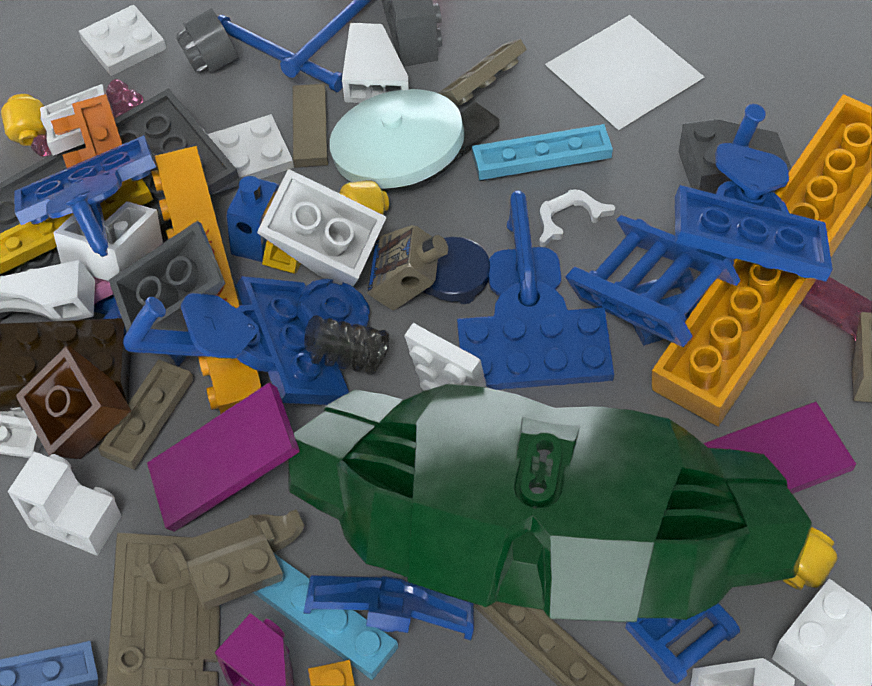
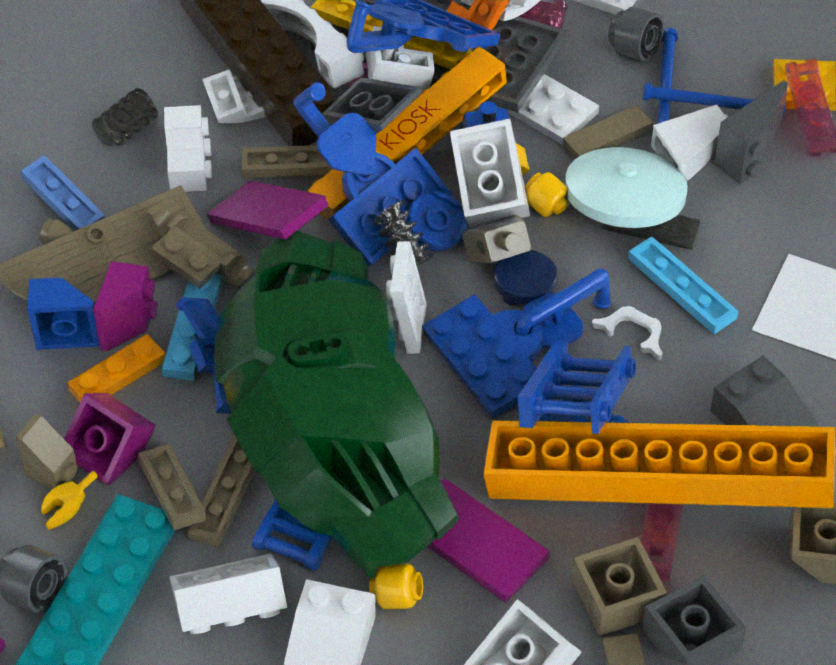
camera: 60 degrees right, 5 degrees down
(72, 404) = (257, 114): reddish brown slope -> none
(483, 72) = (737, 213): dark tan plate -> none
(745, 215) = (647, 408): blue plate -> none

